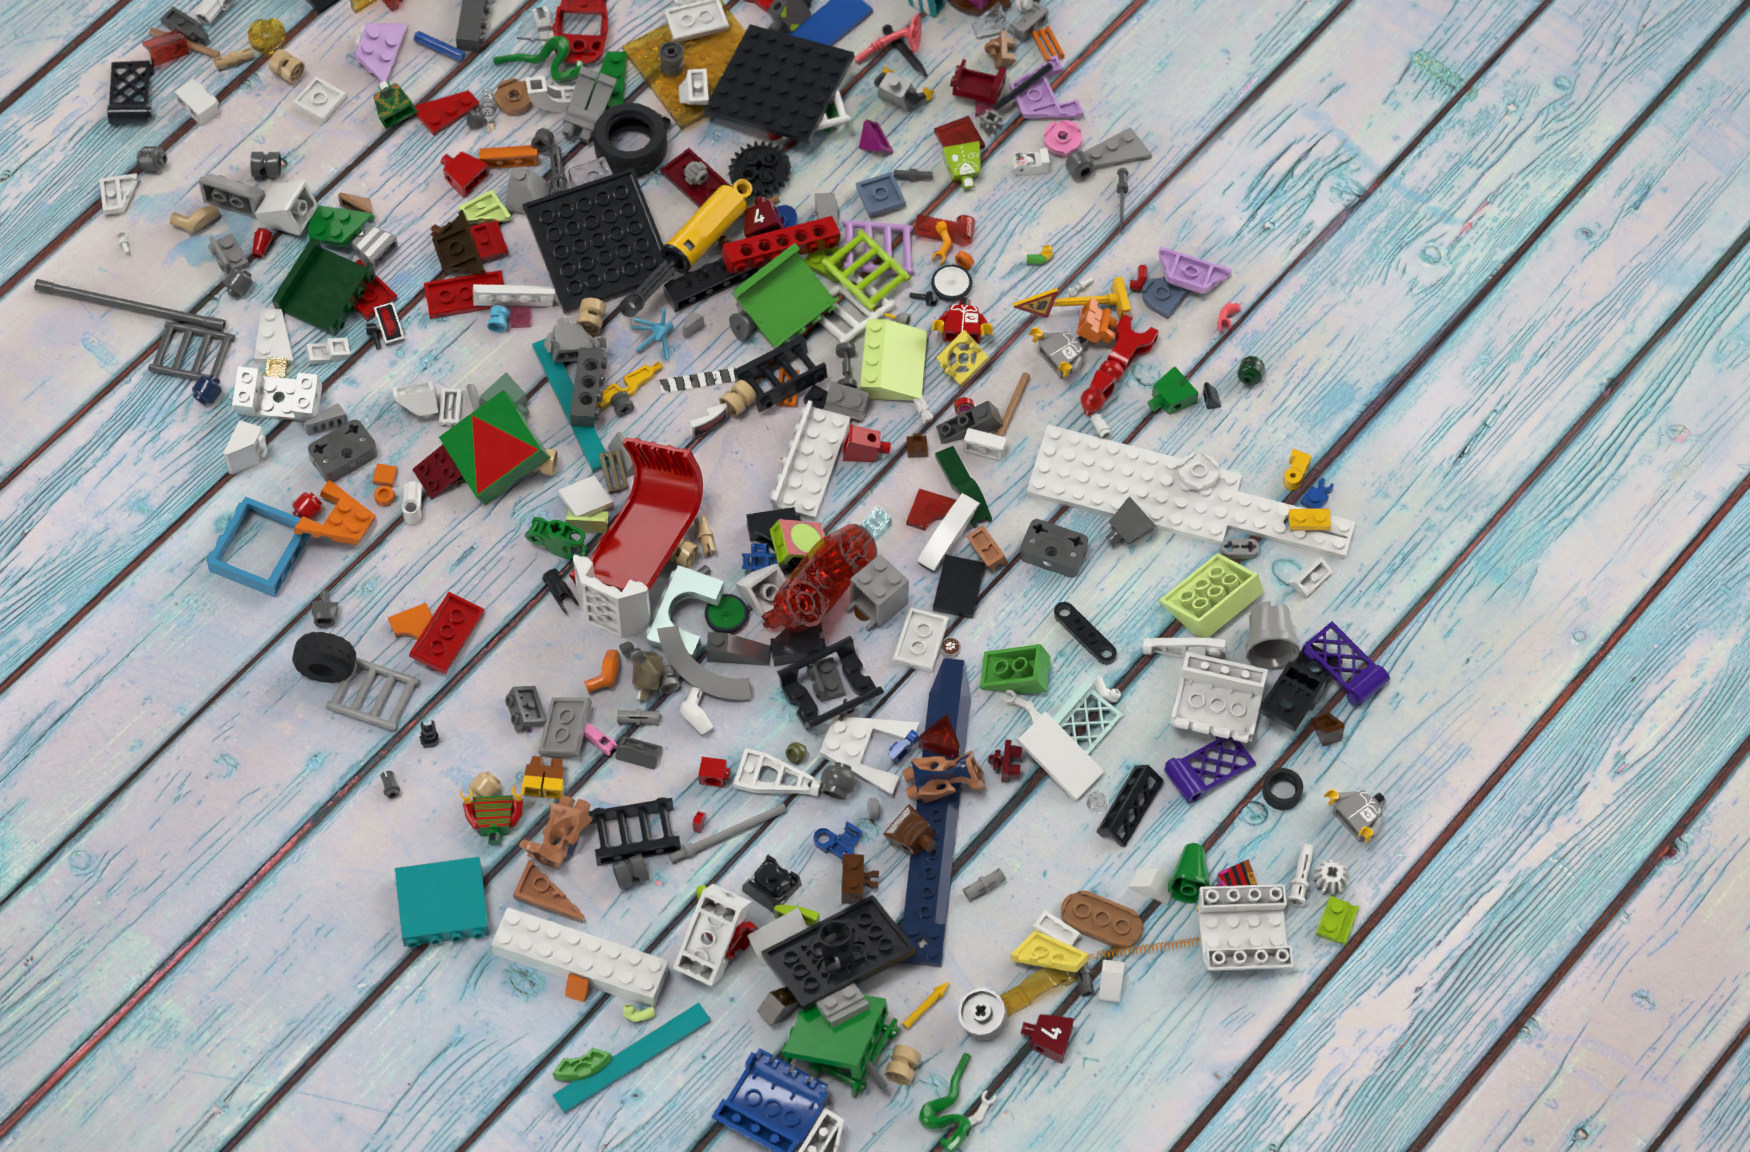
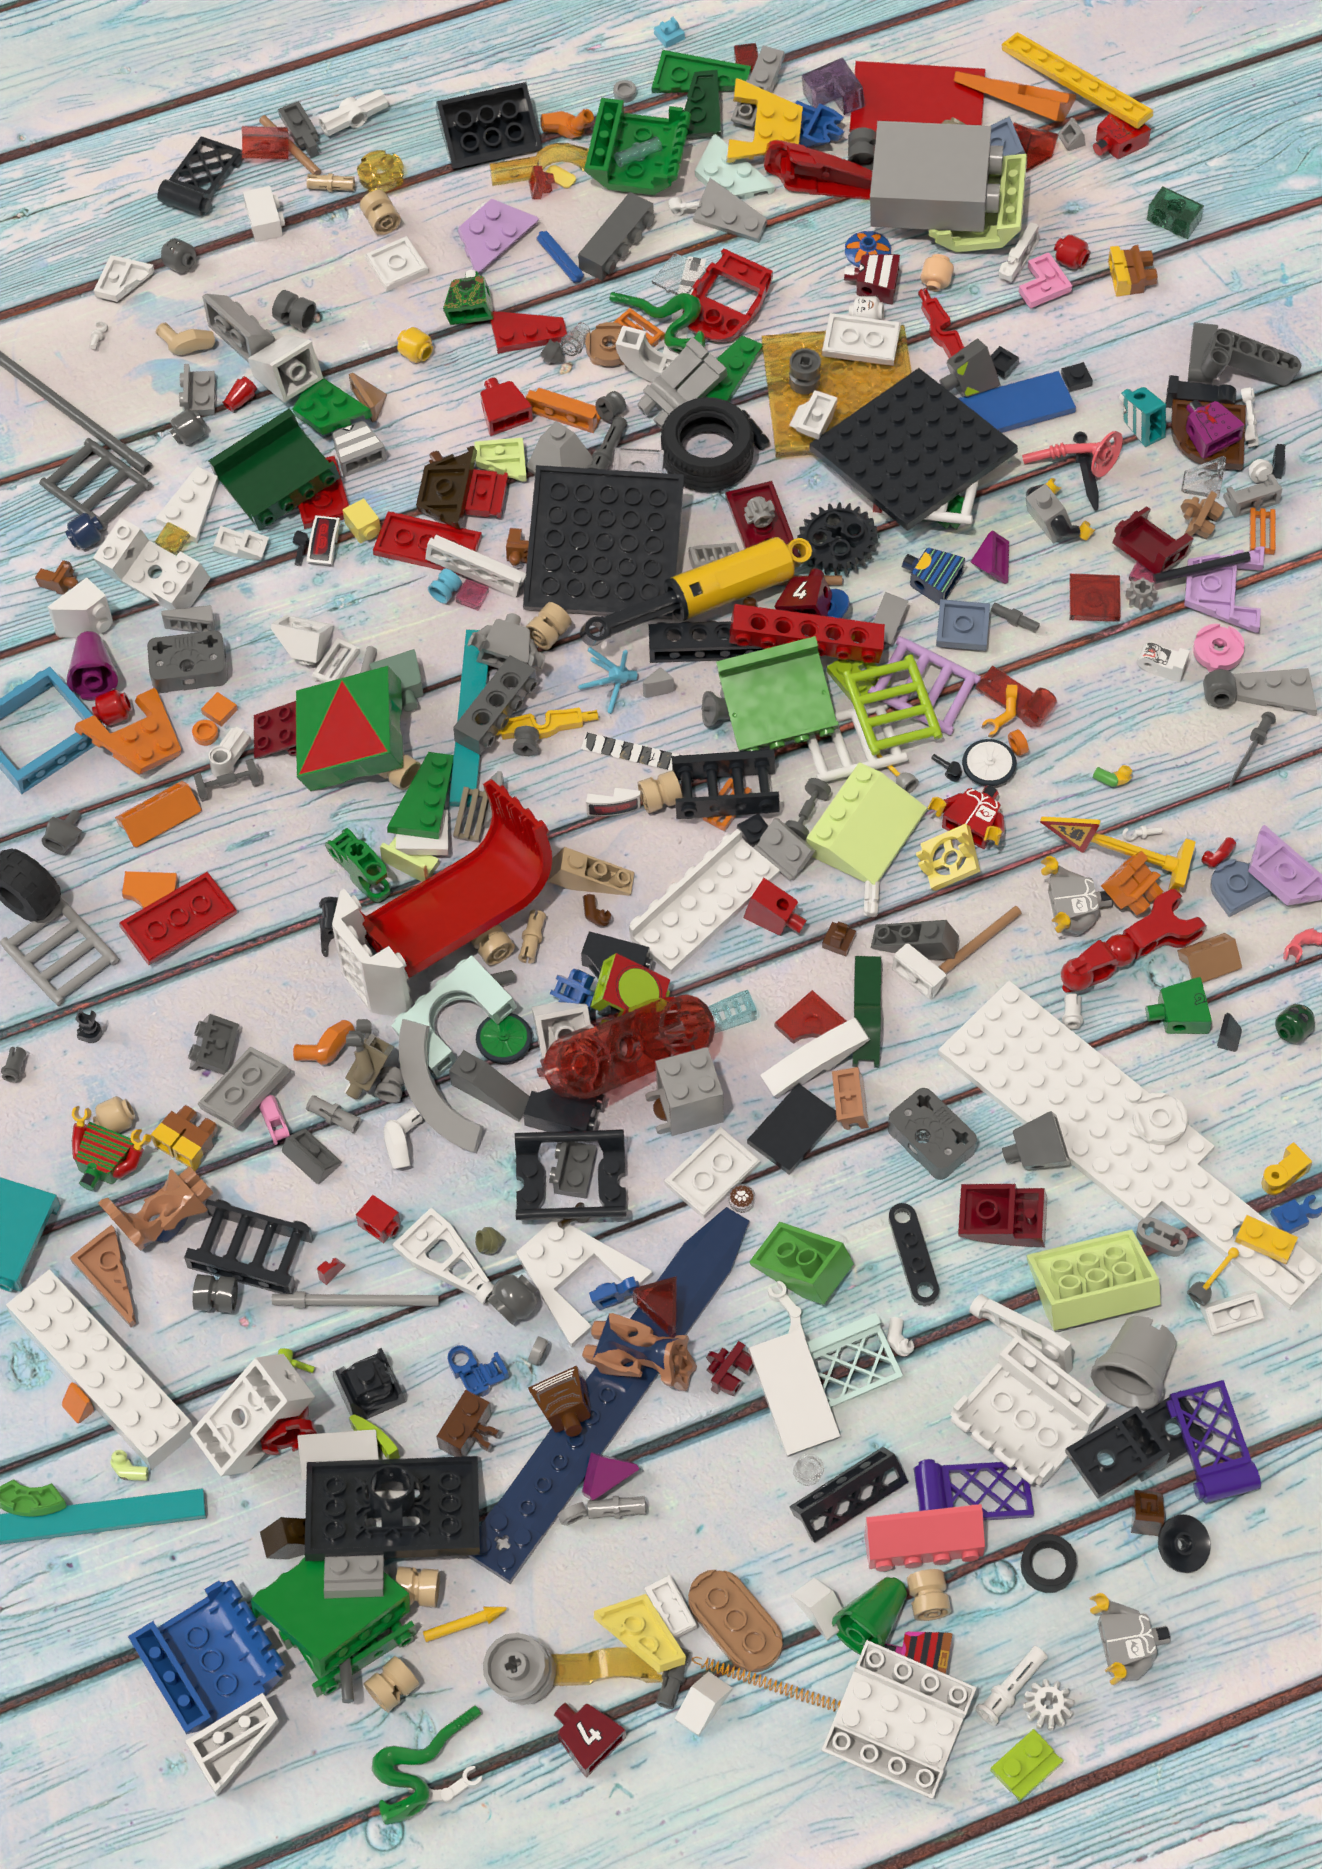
camera: 30 degrees right, 0 degrees up
(209, 434) = (58, 581): none -> dark orange piece
(275, 484) = (91, 667): none -> magenta cone
(371, 153) = (414, 344): none -> yellow head
(386, 566) = (159, 813): none -> orange panel
(407, 534) = (226, 779): none -> dark grey wheel
(410, 297) = (362, 521): none -> light yellow brick
(528, 73) = (624, 321): none -> orange tile
(535, 271) = (516, 547): none -> dark orange piece
(576, 476) = (425, 800): none -> green wing
(665, 221) = (706, 551): none -> light grey slope
(725, 475) = (589, 874): none -> tan slope
(739, 503) = (594, 915): none -> reddish brown arm
(840, 166) = (934, 573): none -> dark blue torso
(887, 990) = (421, 1586): none -> tan wheel
(957, 902) = (572, 1513): none -> light grey tile
(963, 162) = (1080, 627): lime torso -> none
(963, 404) = (920, 912): red tile -> none
(965, 866) = (605, 1473): none -> magenta slope
(1130, 580) = (1003, 1214): none -> dark red slope
(1172, 350) = (1211, 957): none -> medium nougat panel
(1196, 808) = (924, 1537): none -> coral slope
(1221, 846) = (928, 1590): none -> tan wheel
(1285, 572) = (1201, 1291): none -> hinge
(1361, 736) = (1194, 1543): none -> black dish

